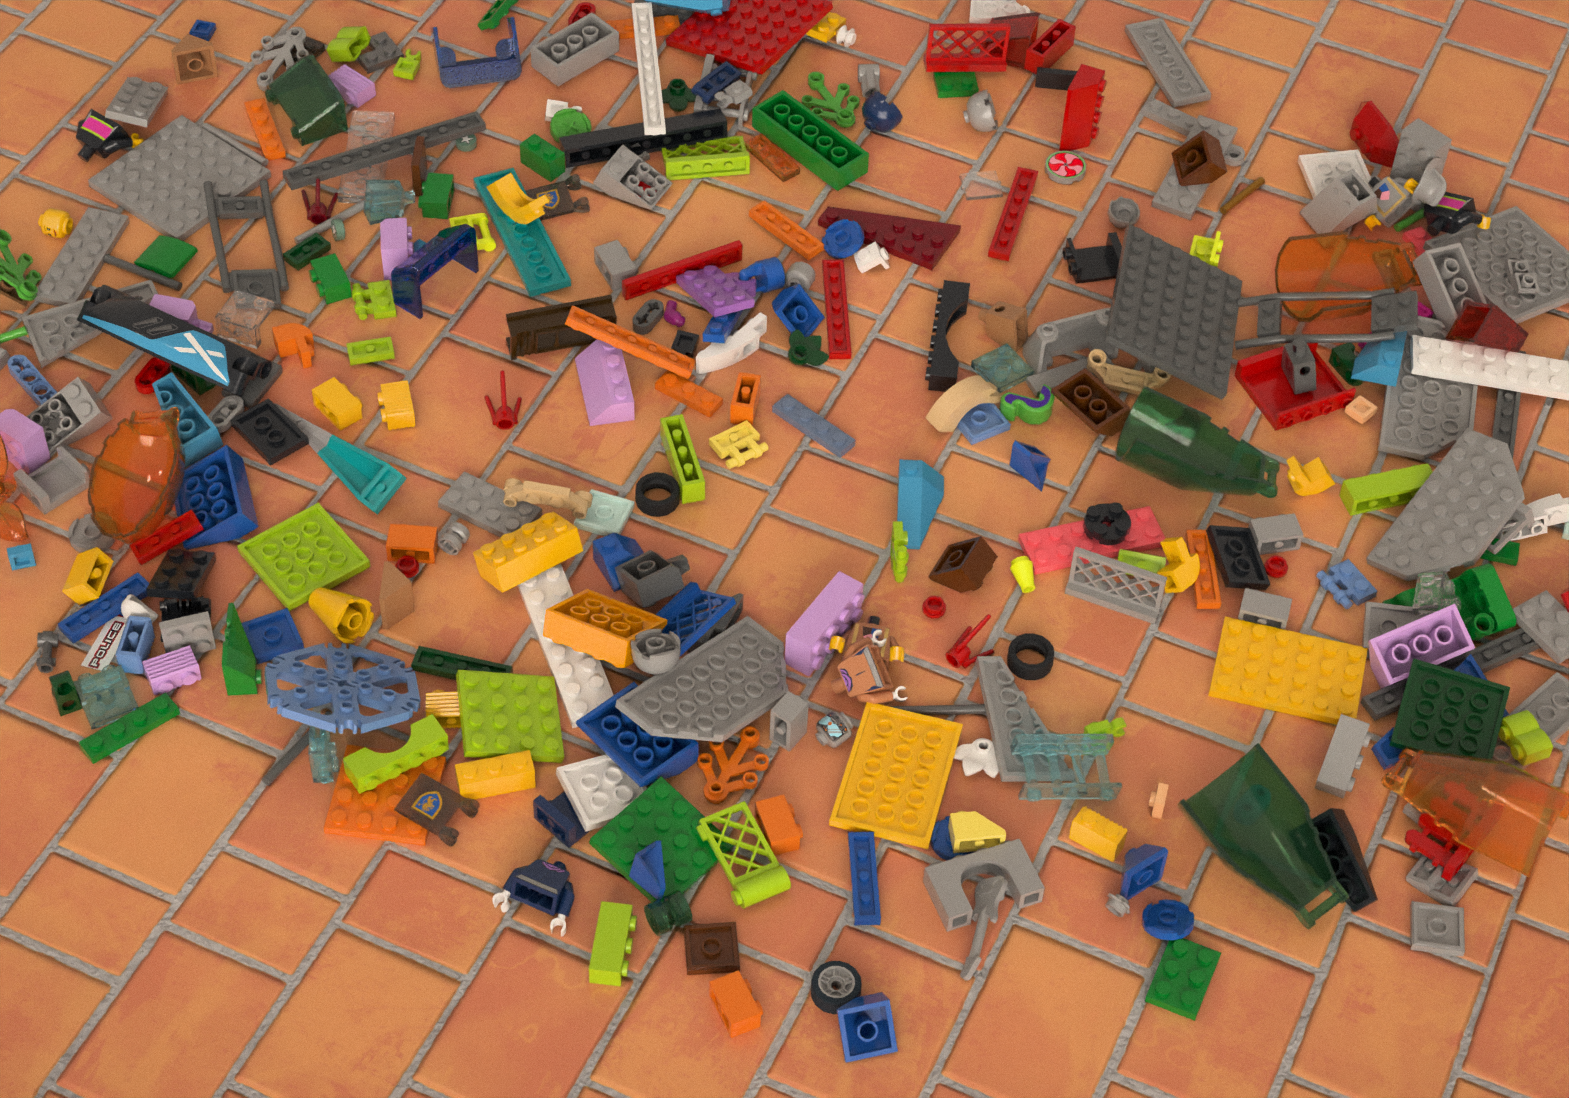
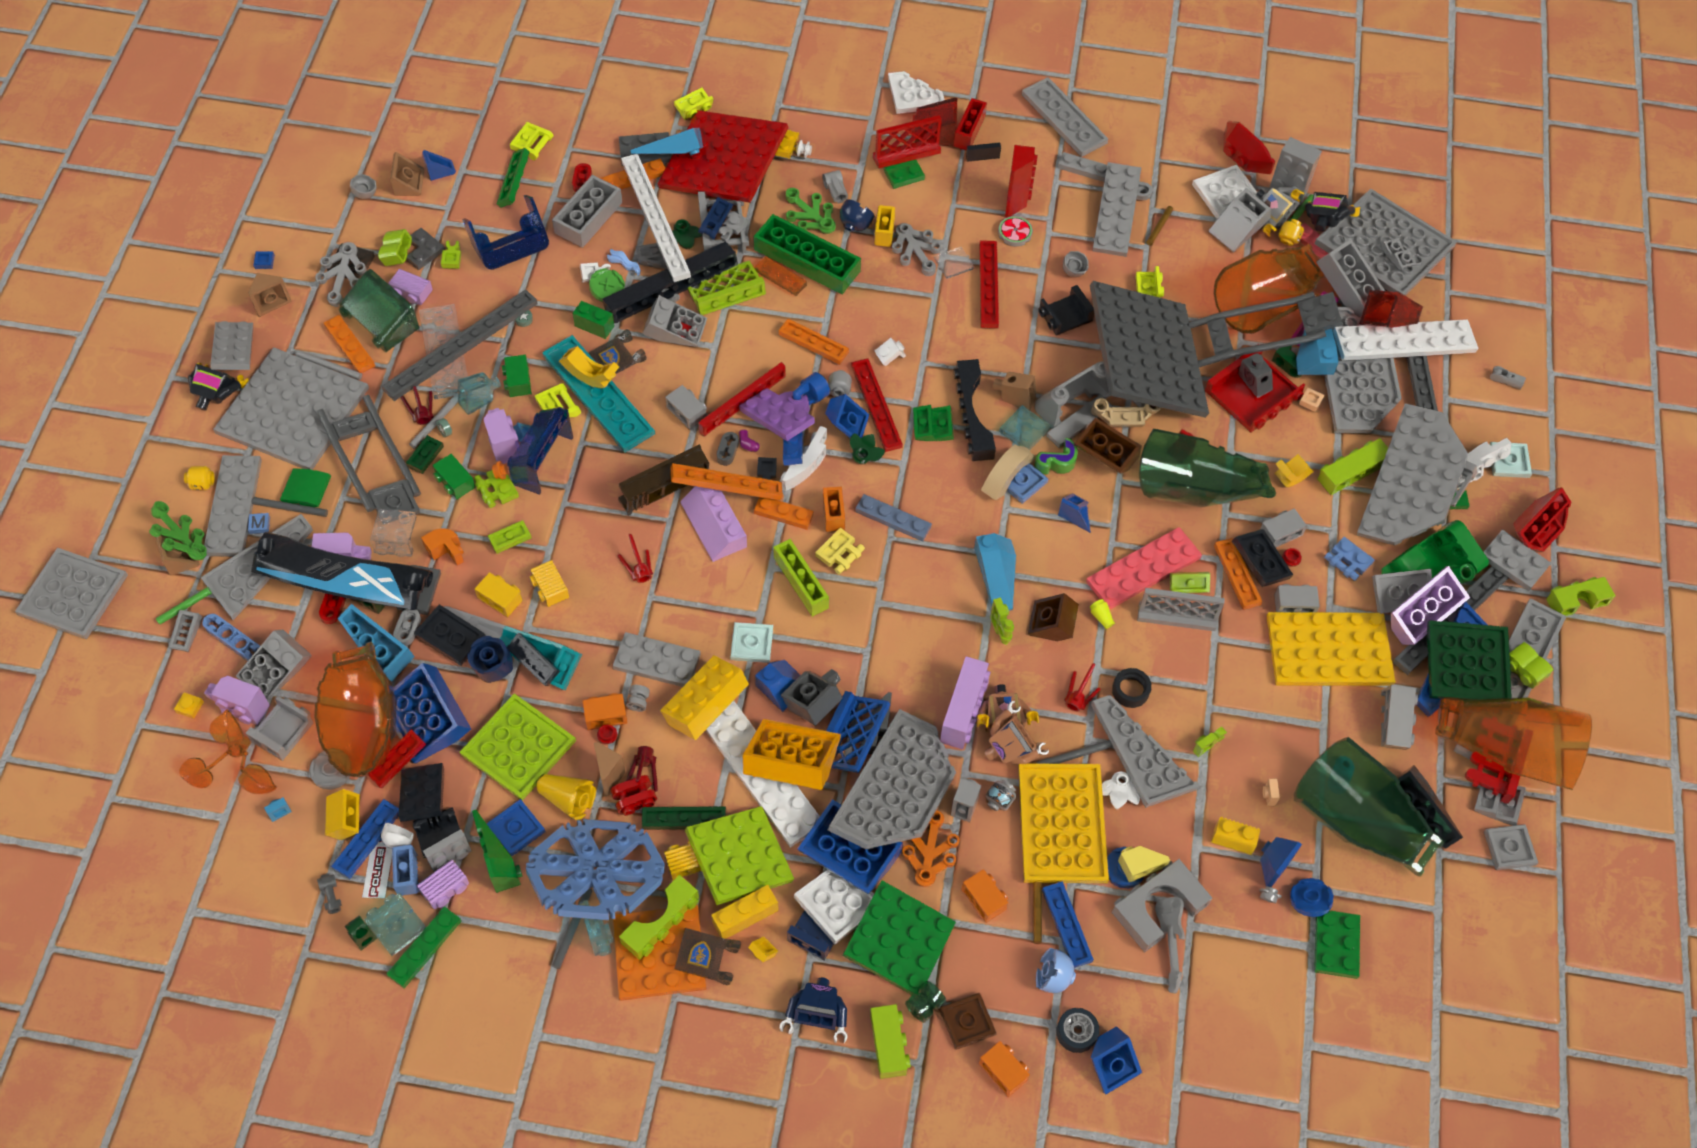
camera: 15 degrees left, 10 degrees up
(103, 277) = (258, 523): none -> medium blue tile
(304, 462) = (490, 659): none -> dark blue brick
(350, 472) = (533, 659): none -> black plate
(382, 280) = (500, 470): none -> orange plate
(413, 630) = (633, 795): none -> red brick
(419, 165) = (494, 353): reddish brown tile -> none
(438, 599) = (644, 759): none -> dark red plant
(502, 817) = (763, 949): none -> yellow plate
(547, 495) = (704, 641): tan plate -> none
(596, 103) = (620, 257): none -> light blue hair
(629, 108) = (650, 256): none -> flat silver wing
(649, 870) = (902, 970): blue slope -> none
(655, 651) = (845, 770): light grey cylinder -> none
(660, 481) = (792, 627): black tyre -> none
(763, 880) = (984, 956): lime piece -> none
(832, 920) = (1056, 972): none -> light blue cylinder
(834, 859) = (1037, 912): none -> pearl gold bar
(843, 239) = (862, 339): blue tile -> none
(895, 341) = (933, 423): none -> green slope
(906, 238) = (910, 325): dark red wing -> none
(910, 129) = (884, 226): none -> yellow brick
(934, 607) = (1042, 662): red plate -> none
(935, 143) = (906, 232): none -> light grey plant
(981, 112) = (934, 197): light grey cylinder -> none
(1074, 746) = (1195, 764): clear light blue fence -> none
(1110, 513) = (1158, 544): black plate -> none
(1182, 566) = (1224, 578): yellow brick -> none
(1199, 160) = (1122, 205): reddish brown slope -> none
(1399, 230) = (1291, 232): none -> yellow head
(1431, 185) = (1313, 192): light grey piece -> none
(1434, 593) = (1424, 557): clear bracket -> none

